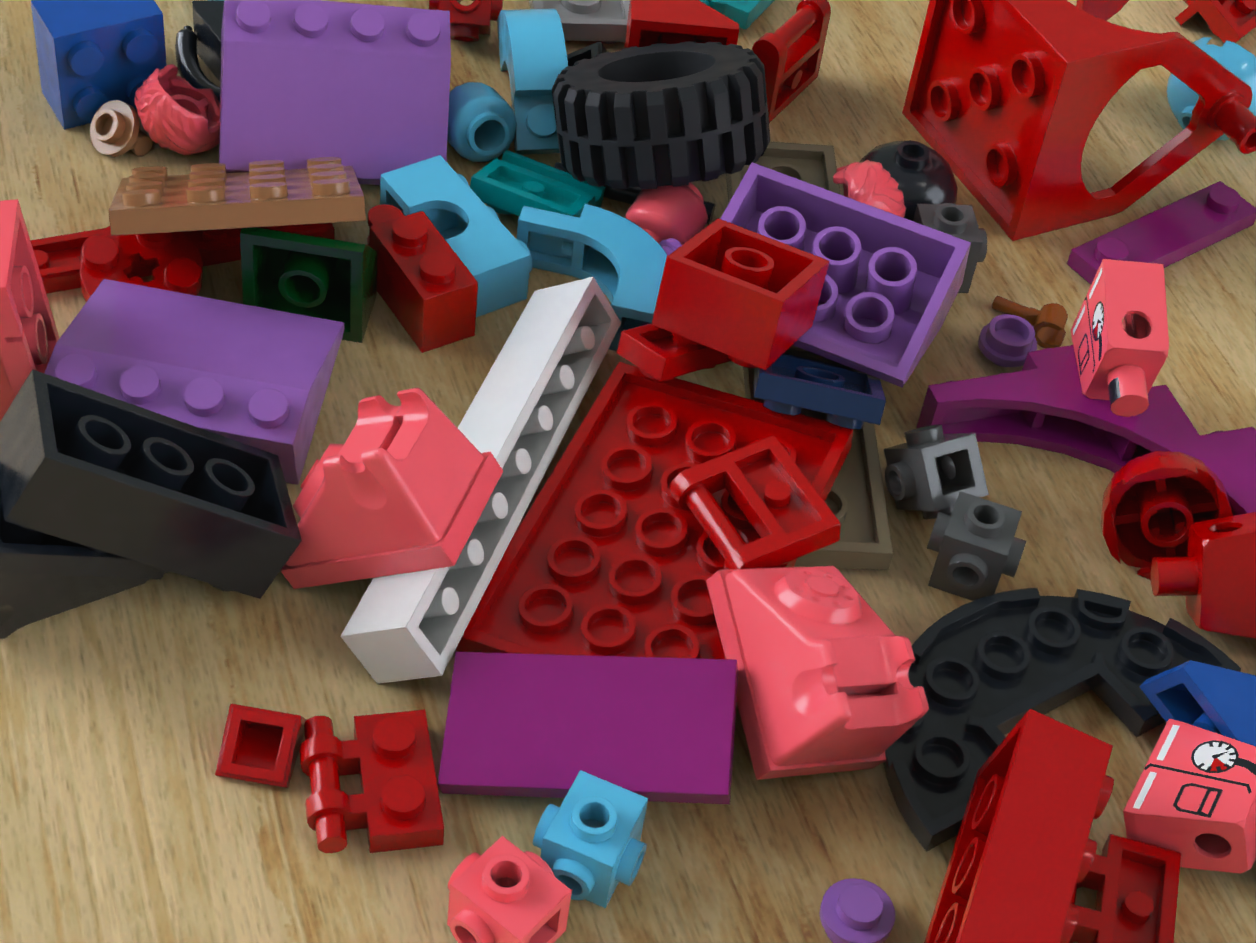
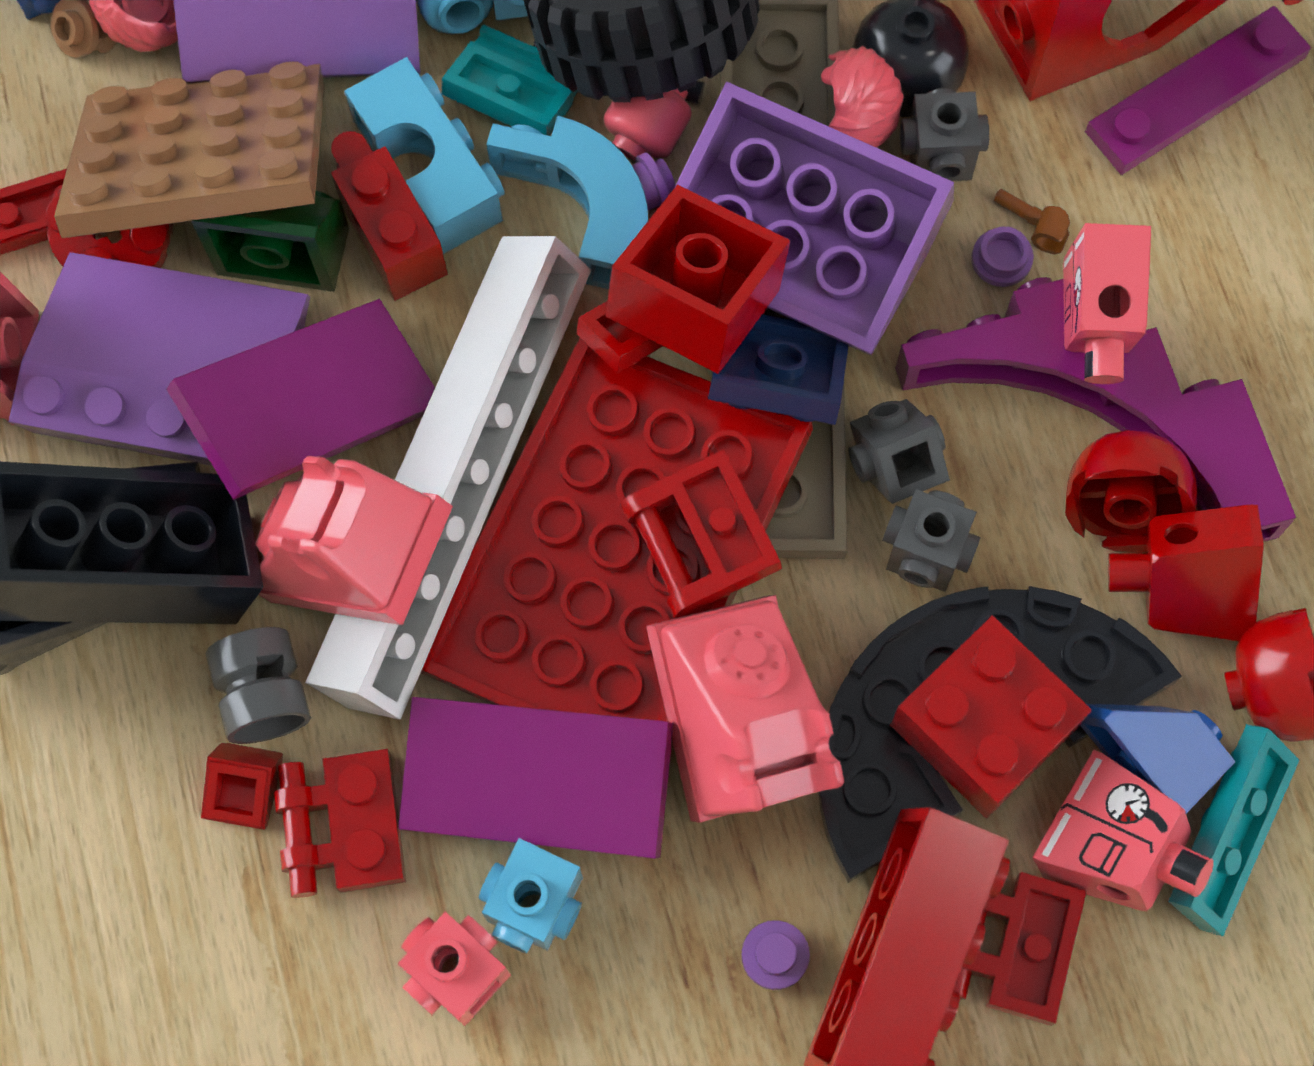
camera: 10 degrees right, 25 degrees up
(287, 642) = (256, 675): none -> dark grey wheel
(312, 382) = (303, 397): none -> magenta tile
(1064, 663) = (989, 716): none -> red brick

